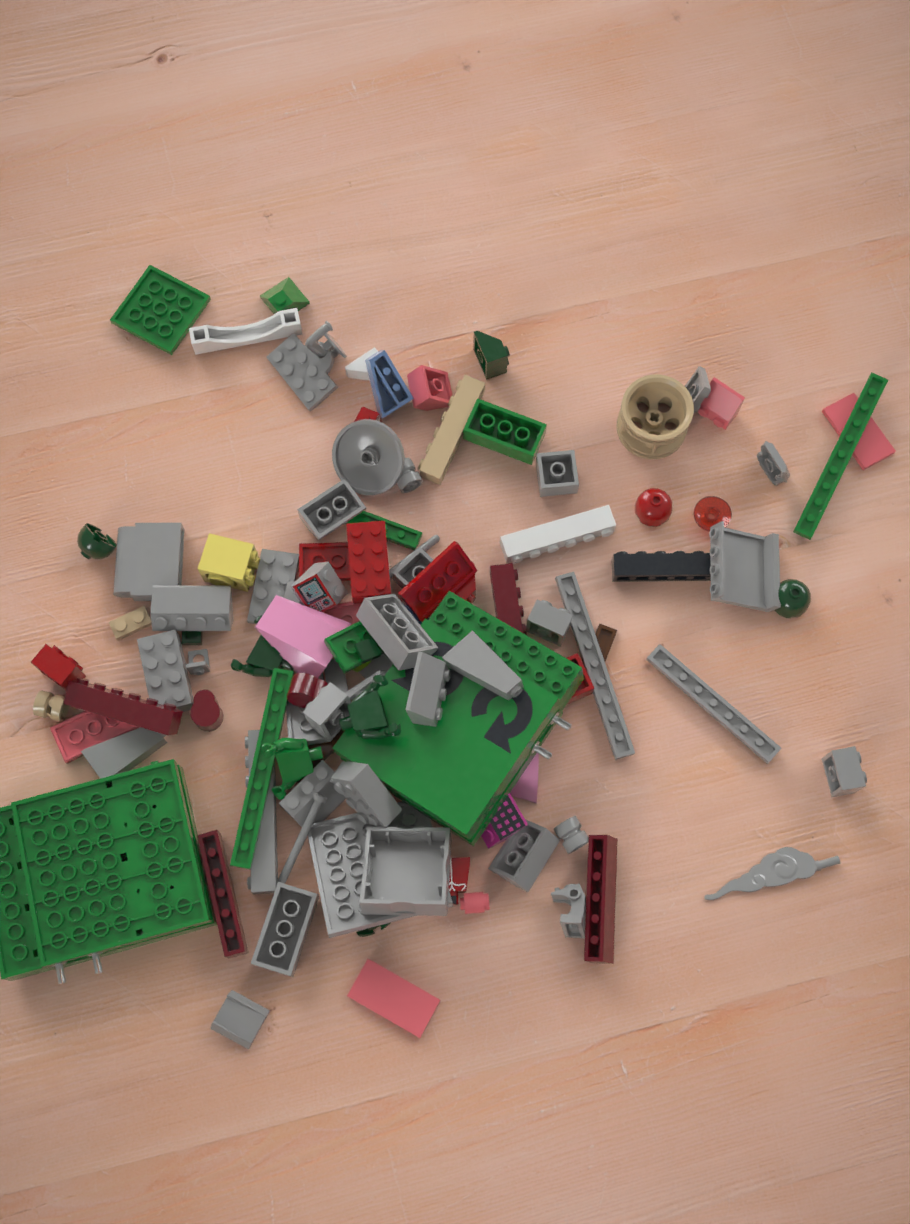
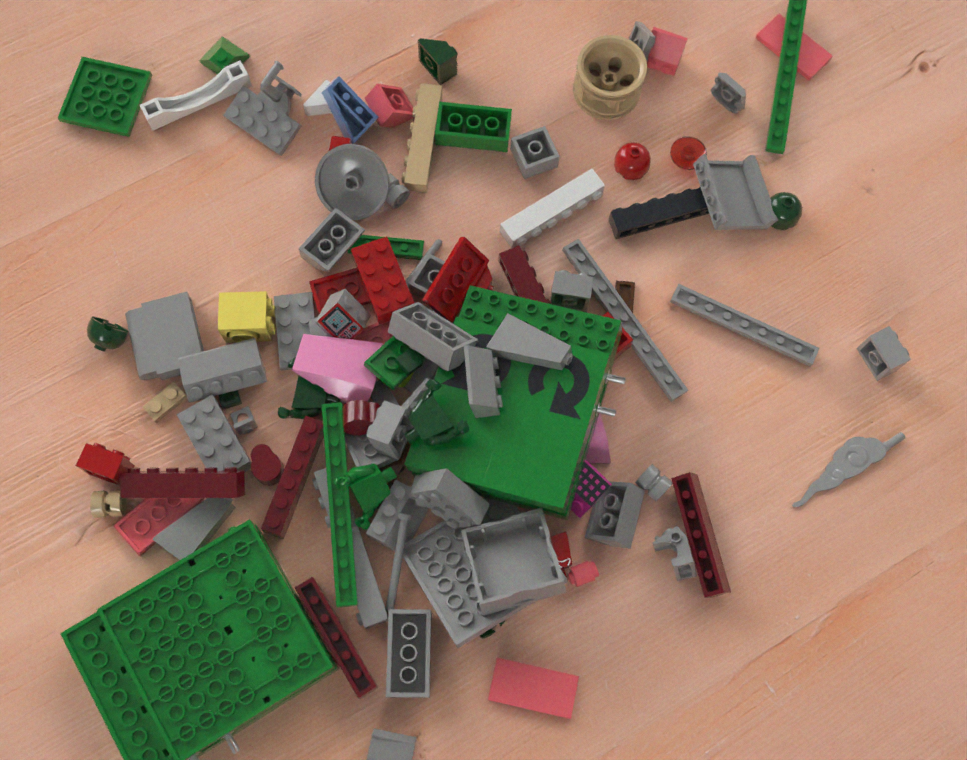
camera: 20 degrees left, 0 degrees up
(228, 730) = (293, 478): none -> dark red brick

